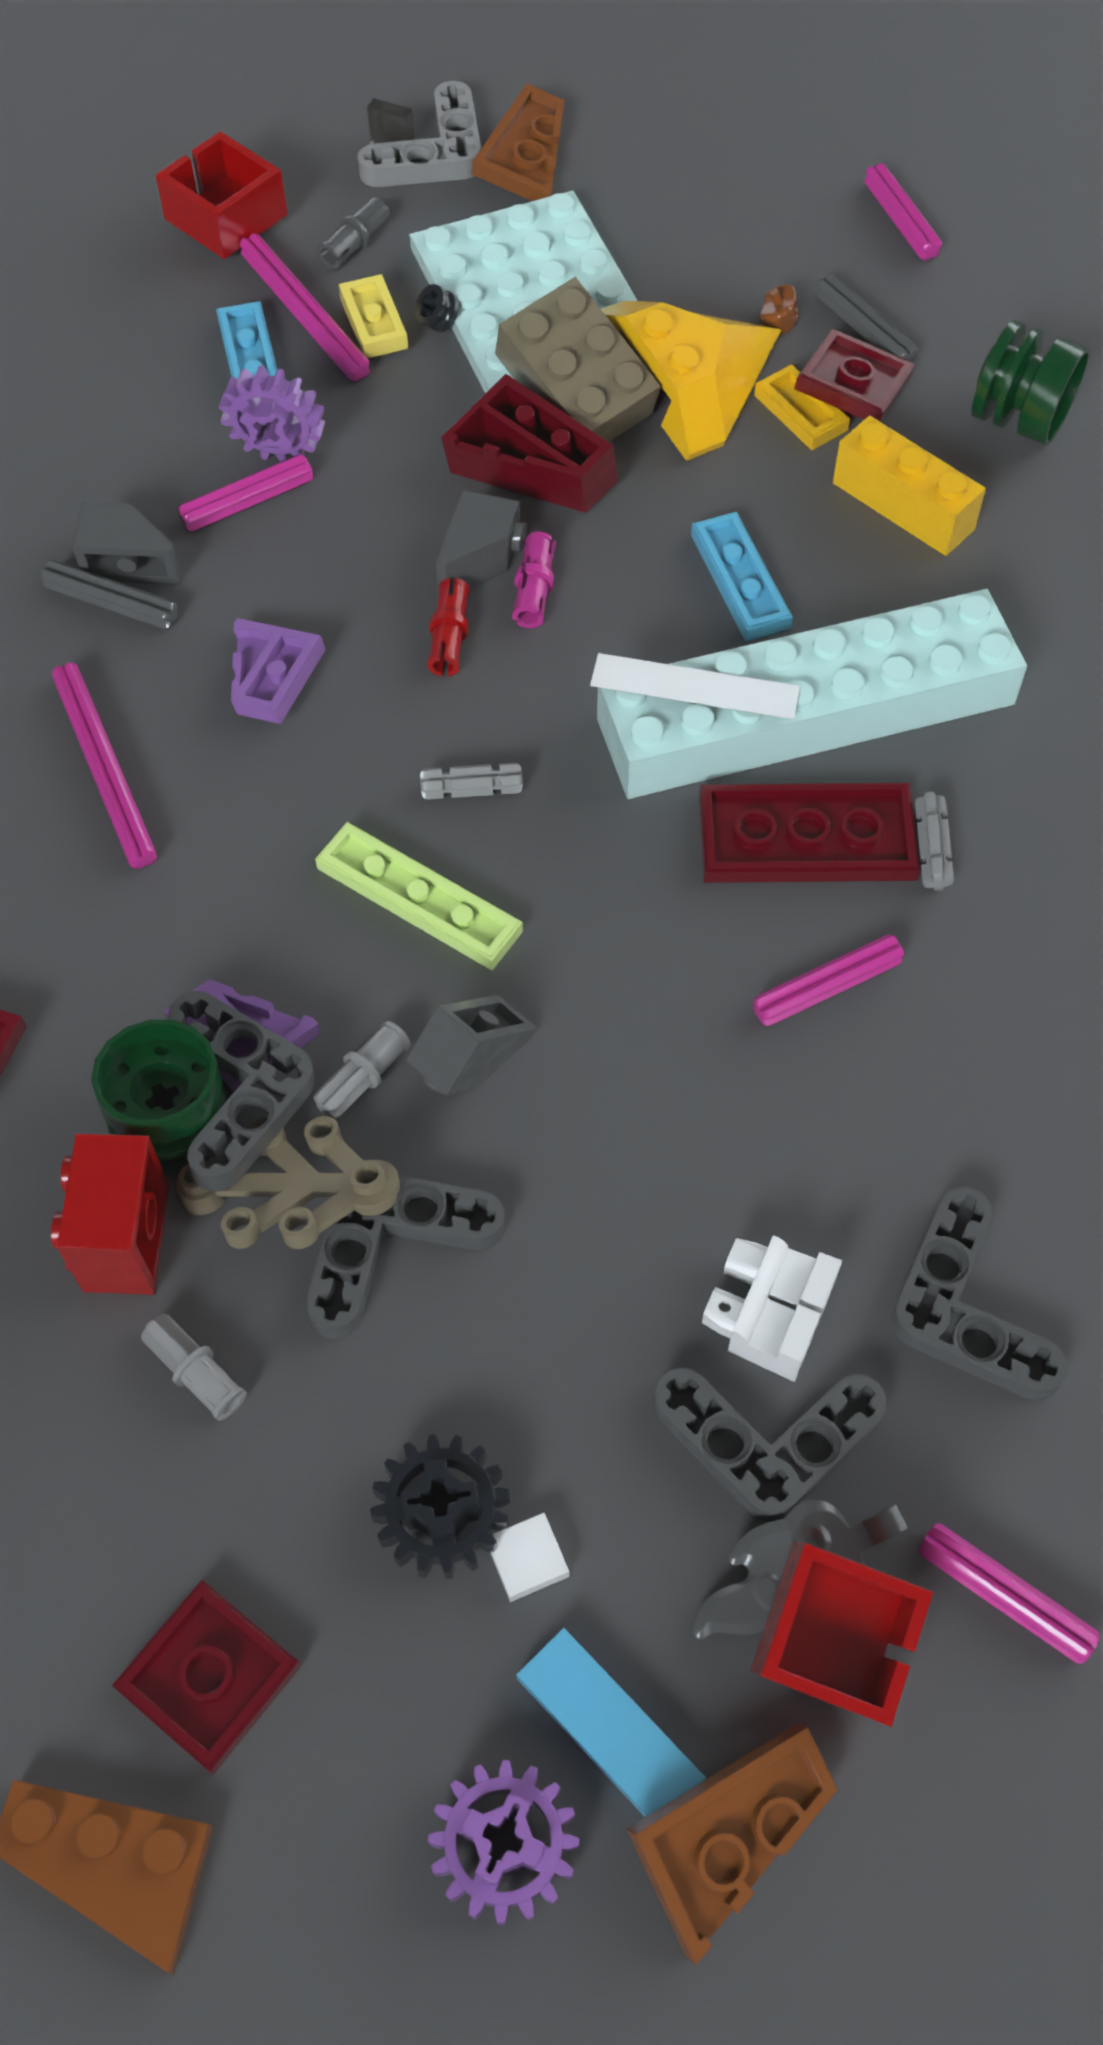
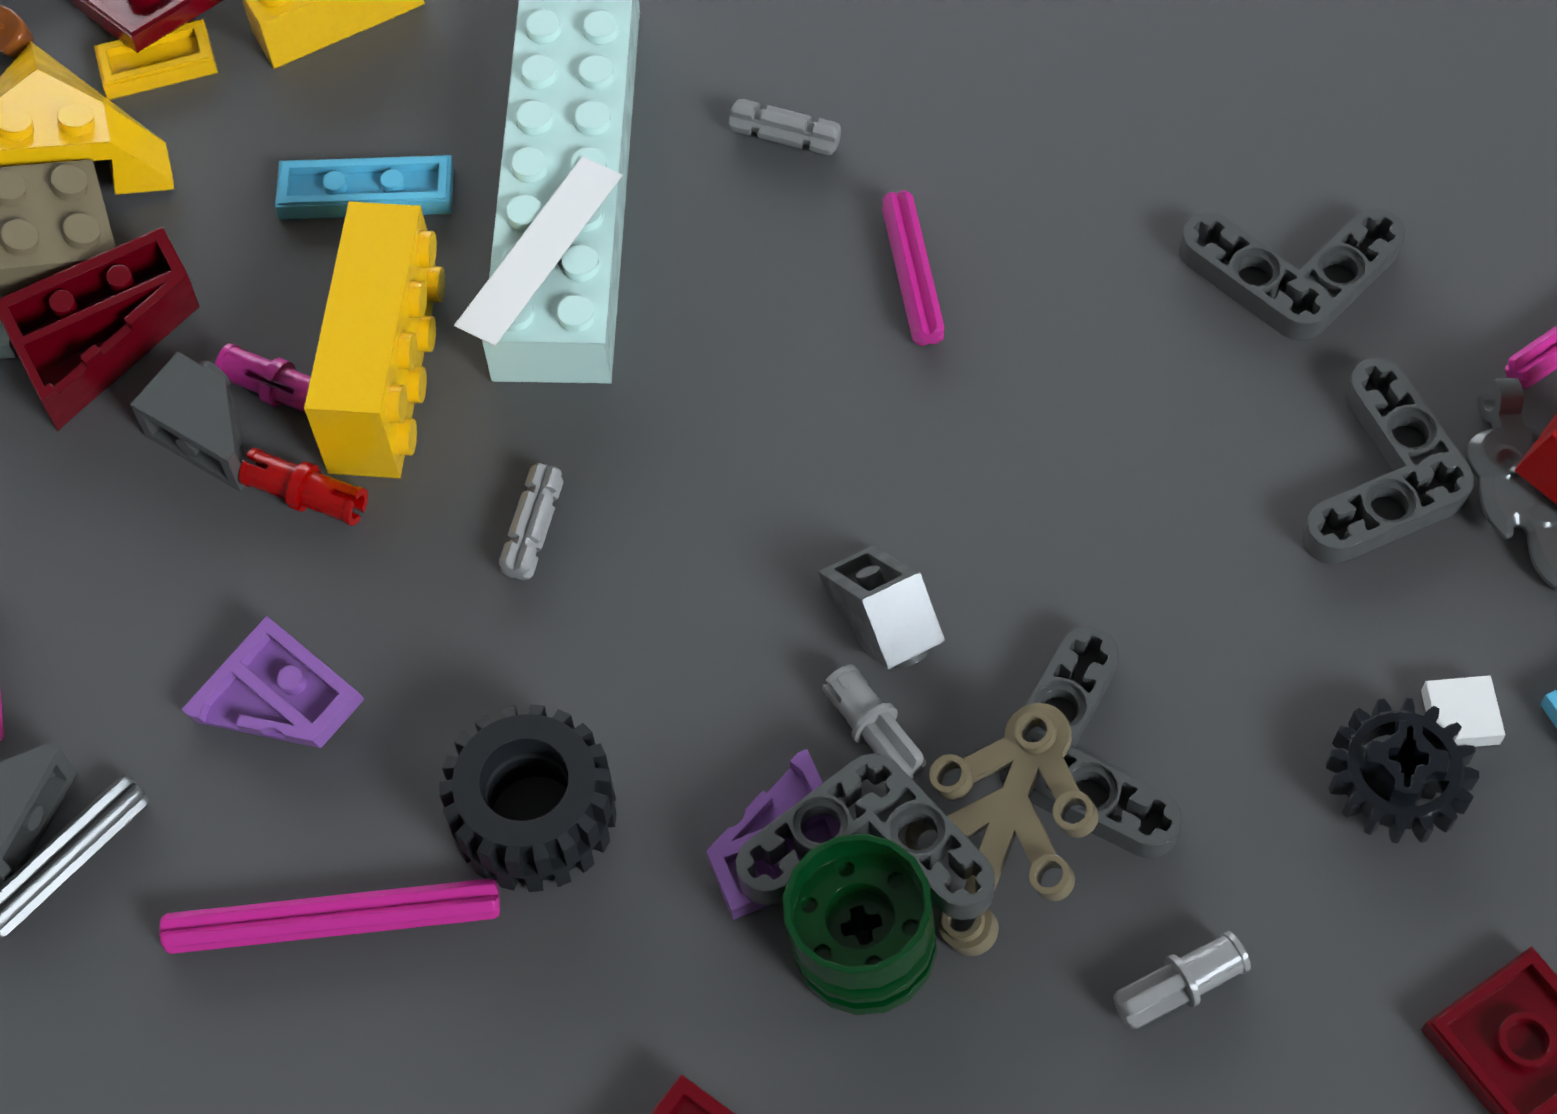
camera: 70 degrees left, 0 degrees up
(112, 1213) = (997, 1006): red brick -> none
(213, 812) = (517, 750): none -> black tyre
(419, 895) = (659, 617): yellowish green tile -> none
(567, 610) = (375, 341): none -> yellow brick
(781, 1307) = (1264, 416): white hips -> none
(808, 832) = (725, 233): dark red tile -> none

